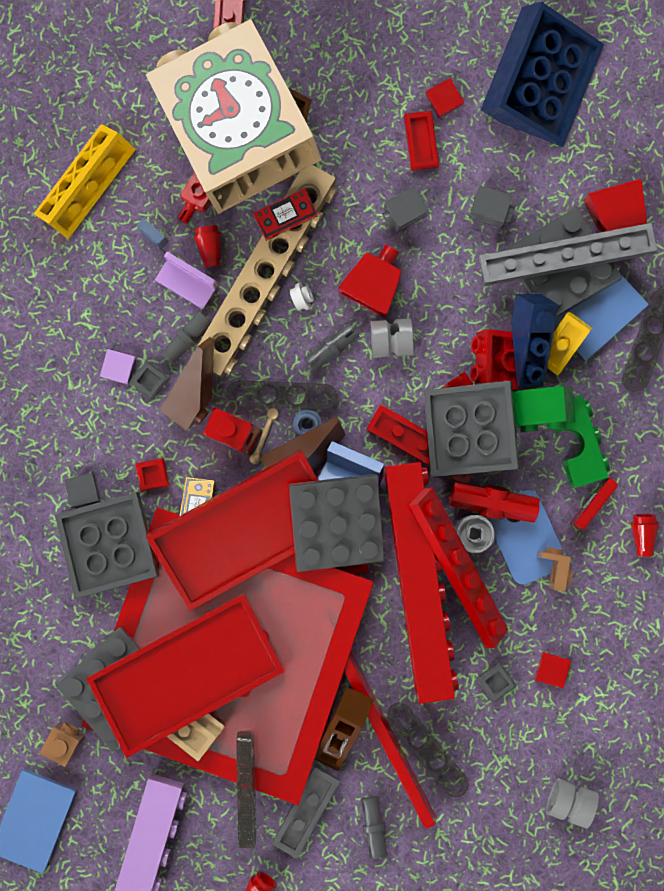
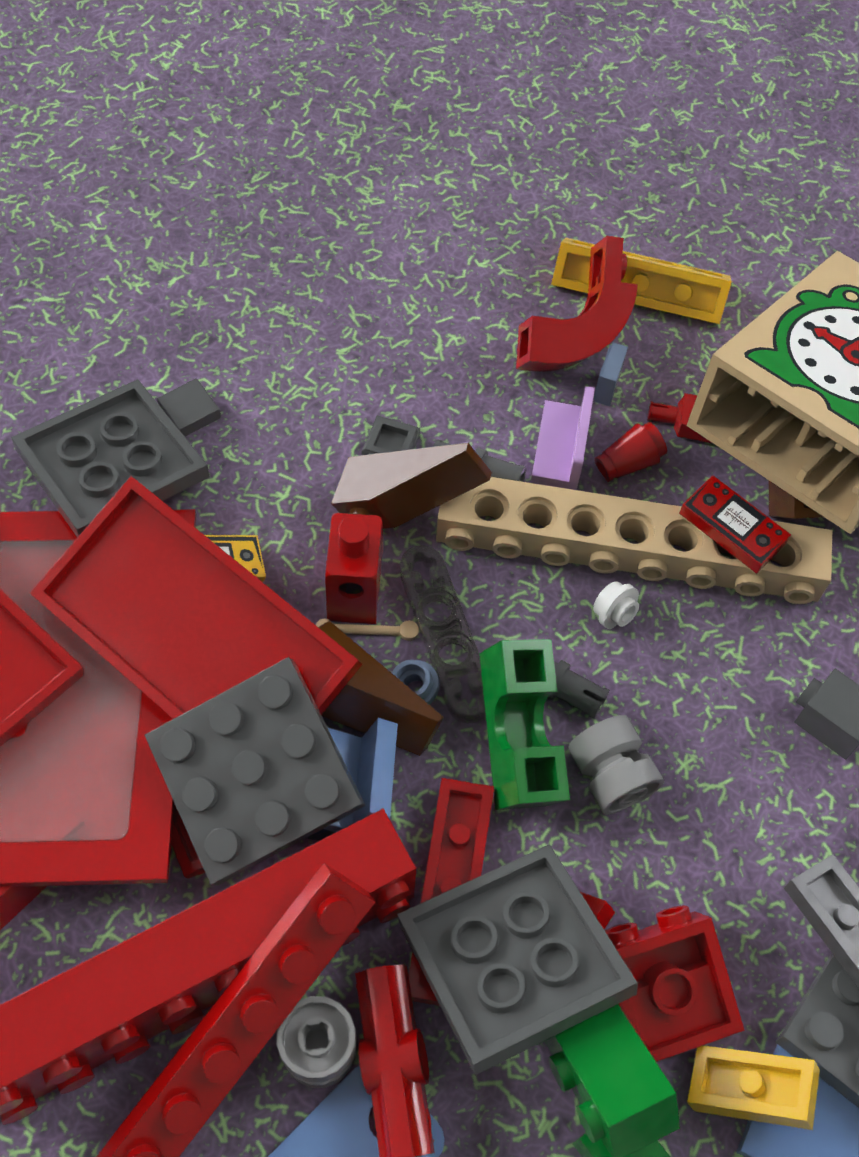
camera: 65 degrees right, 25 degrees down
(118, 232) = (561, 343): none -> red arch
(118, 366) = (394, 396): lavender tile -> none
(152, 474) = (245, 491): red tile -> none
(373, 281) = (696, 704): red torso -> none
(376, 384) = (515, 688): none -> green arch
(532, 337) = (735, 1013): dark blue slope -> none

